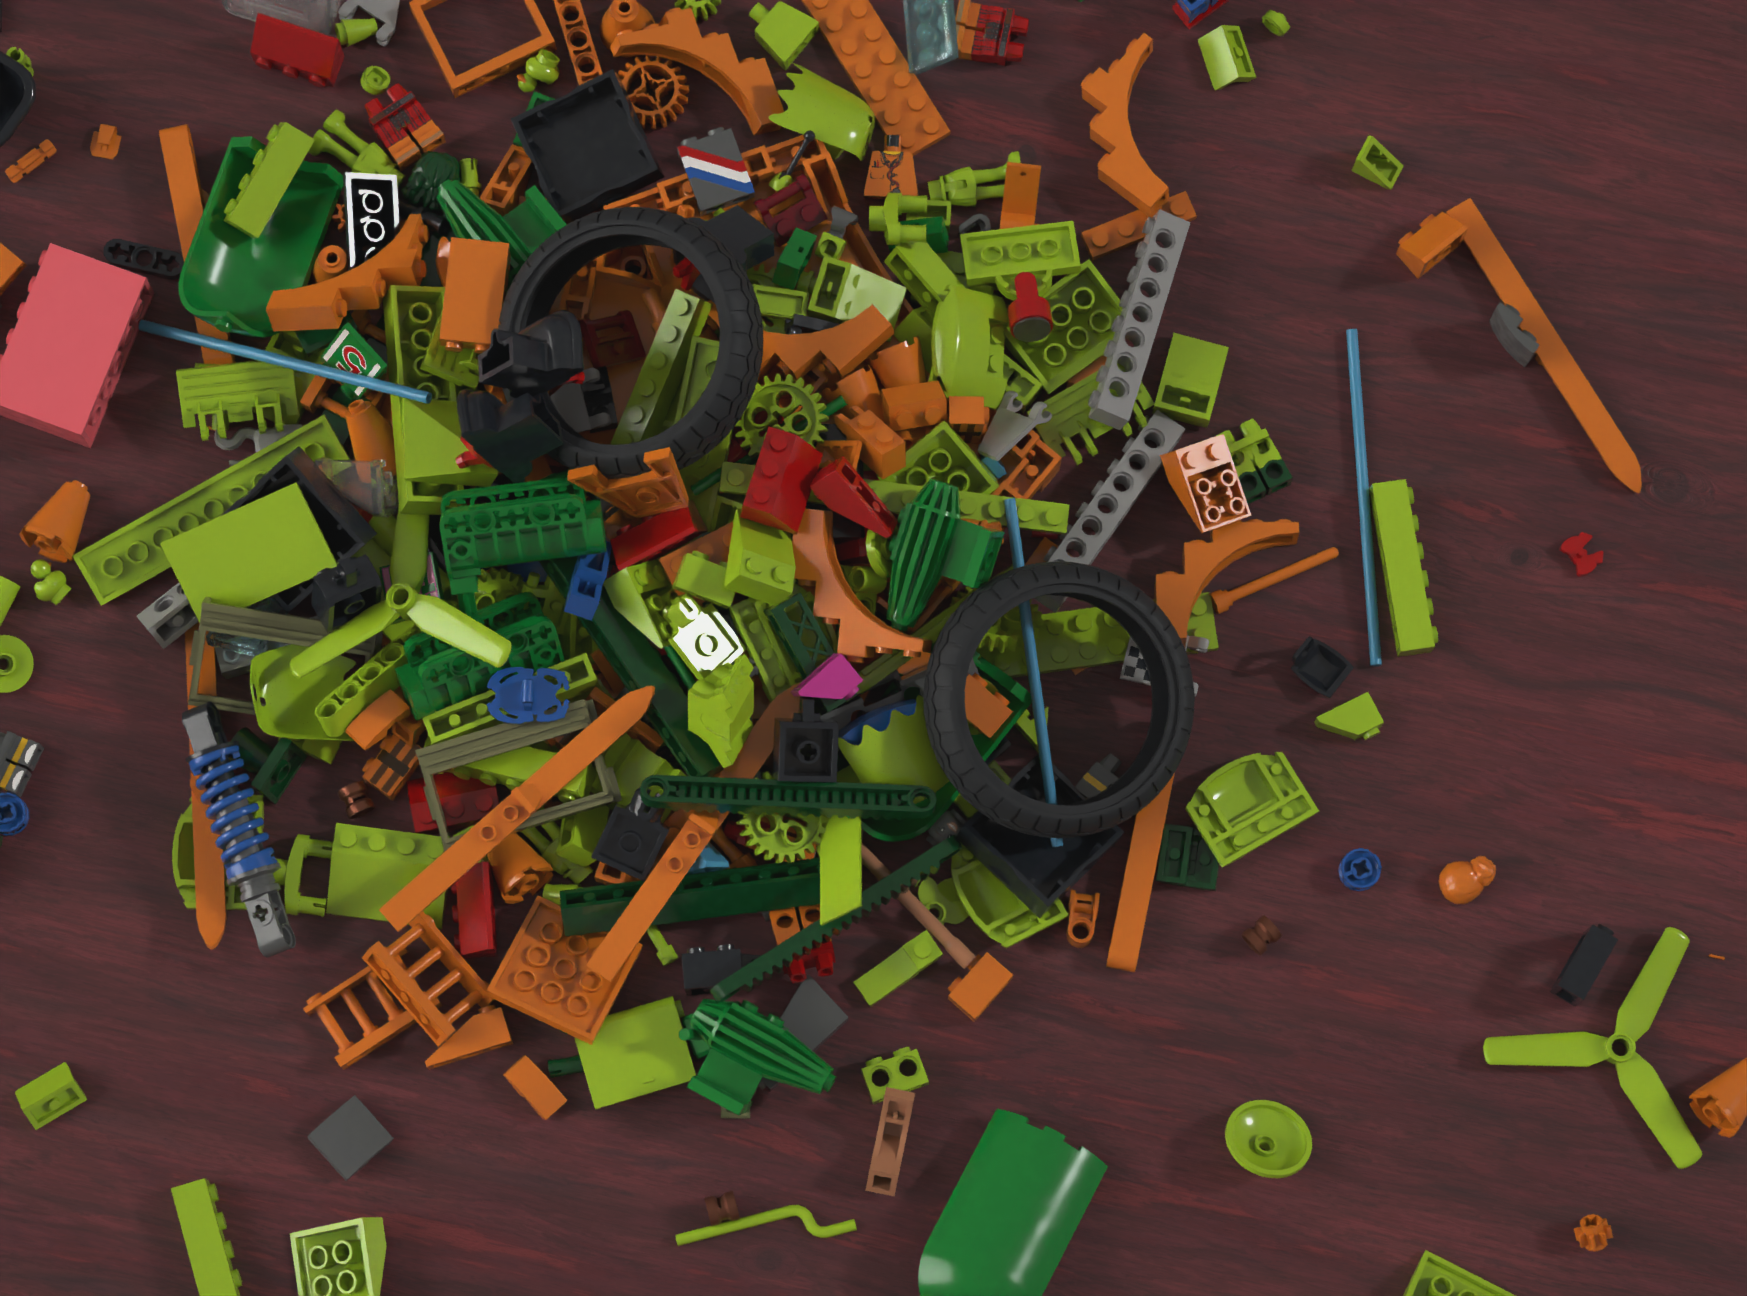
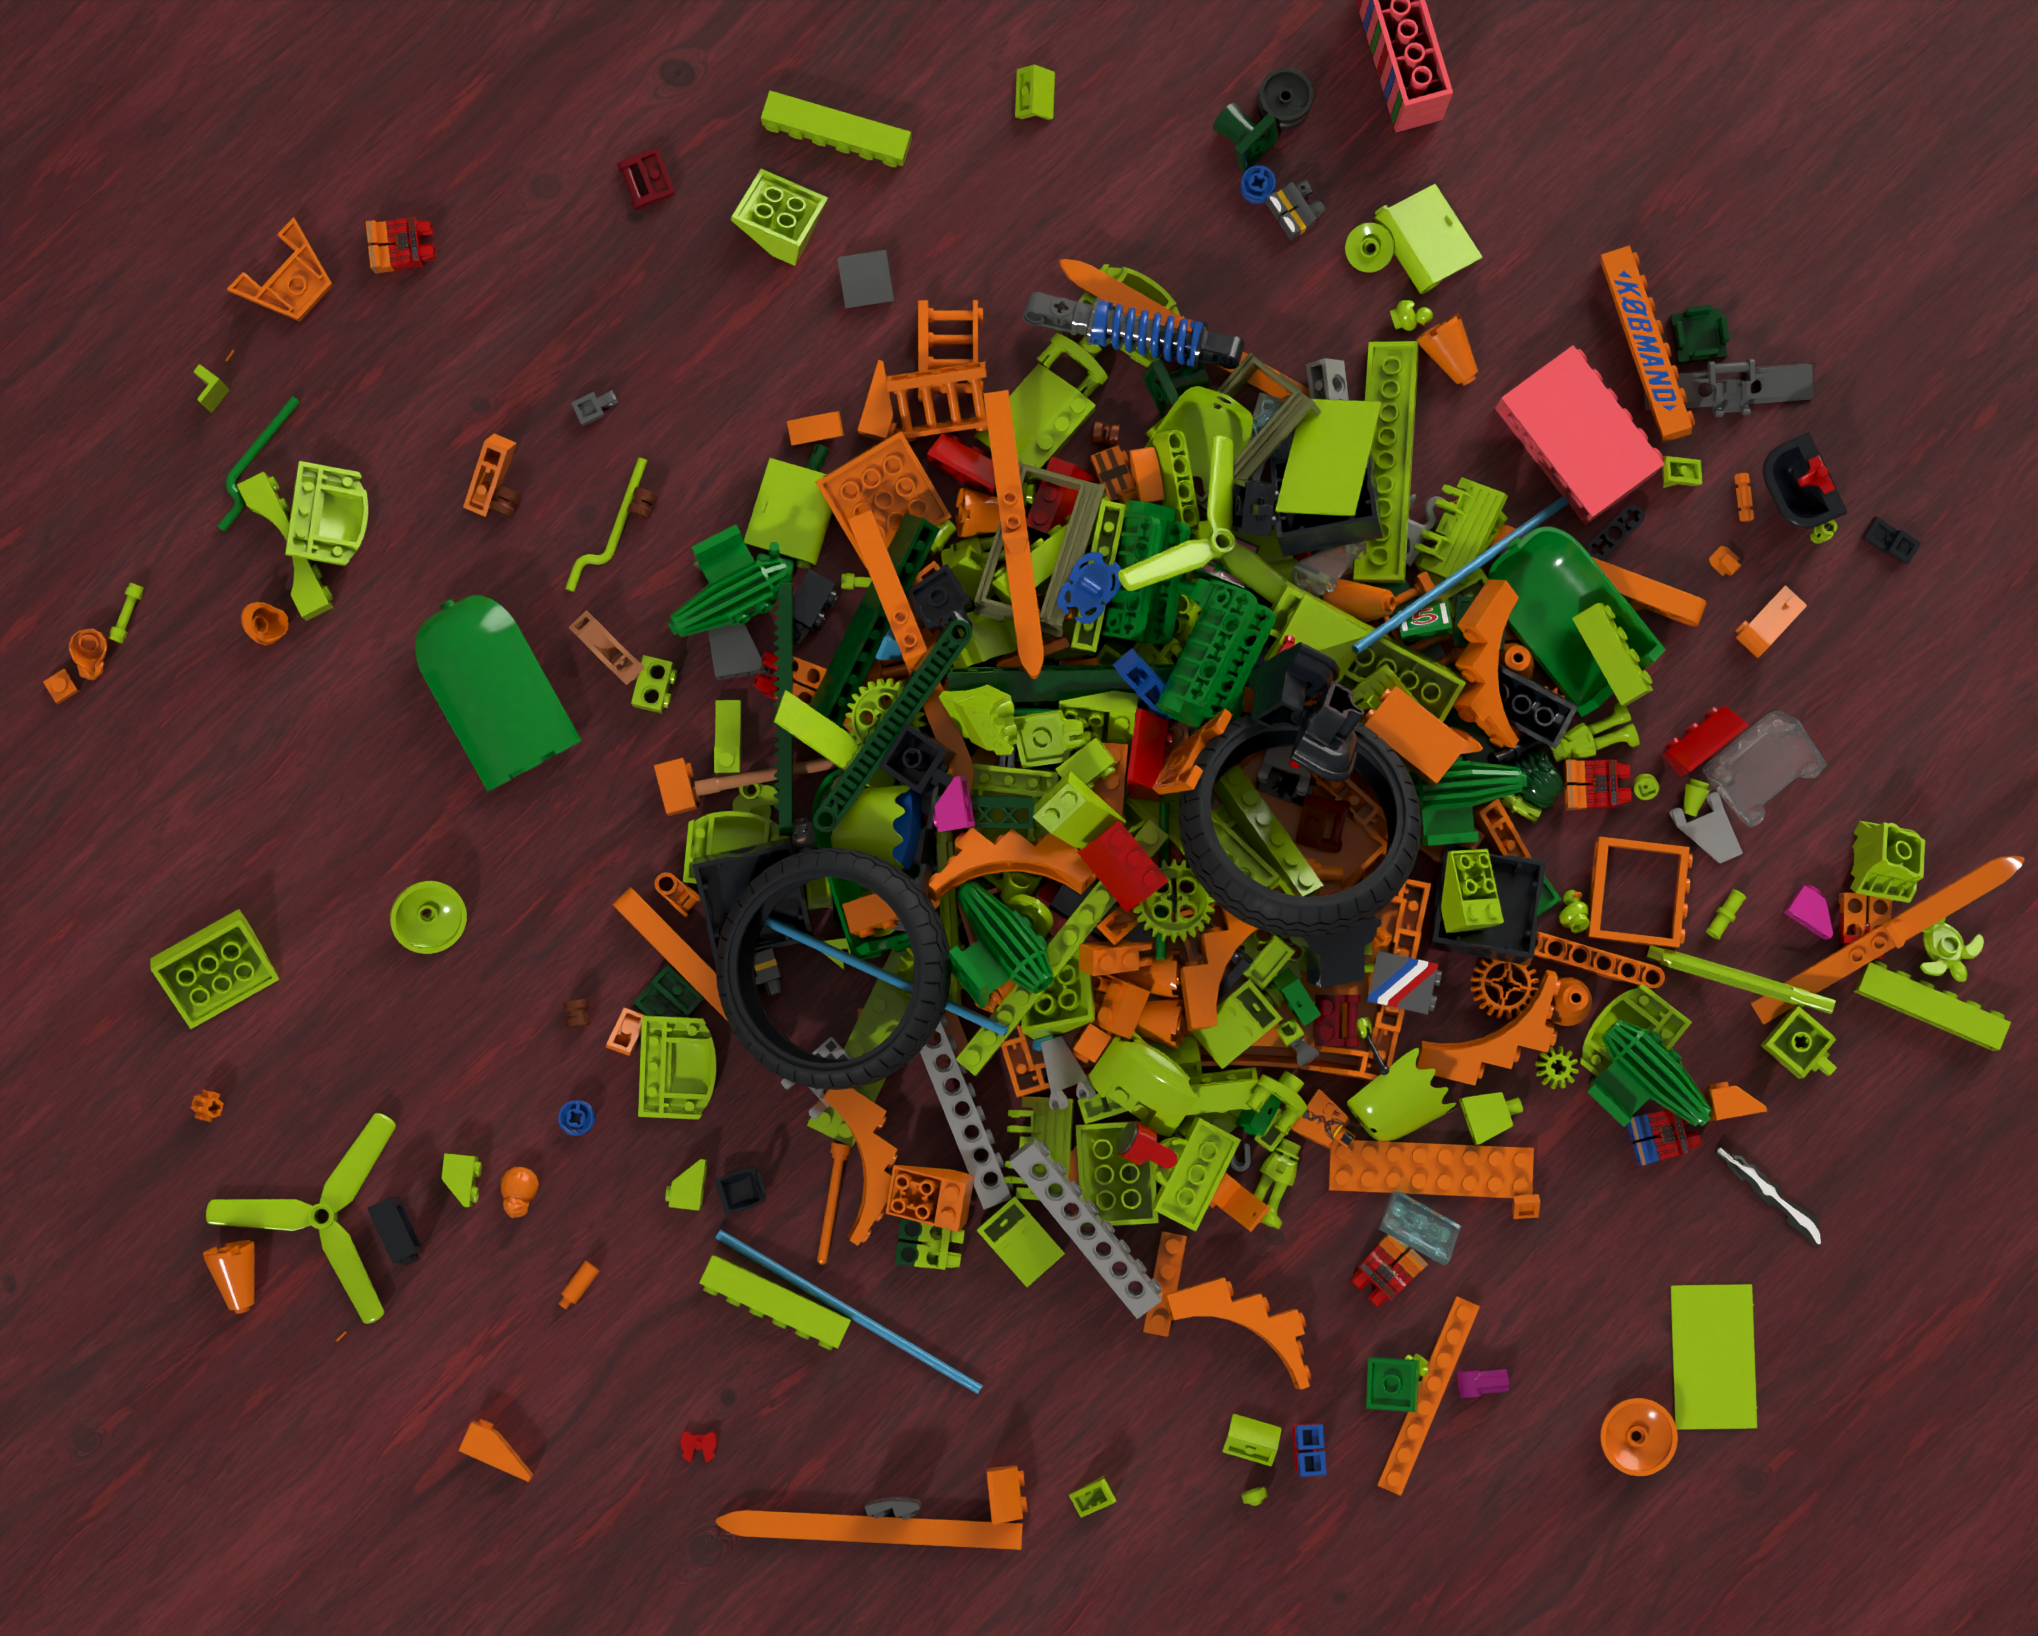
camera: 125 degrees right, 5 degrees up
(44, 230) = (1681, 471): none -> lime slope
(150, 62) = (1770, 622): none -> orange door
(588, 163) = (1470, 892): none -> lime slope
(850, 496) = (1078, 910): red slope -> none
(1248, 874) = (626, 1032): none -> orange slope
(1491, 942) = (460, 1176): none -> lime slope
(1513, 762) = (578, 1284): none -> orange cylinder
(1720, 743) = (490, 1447): none -> orange slope

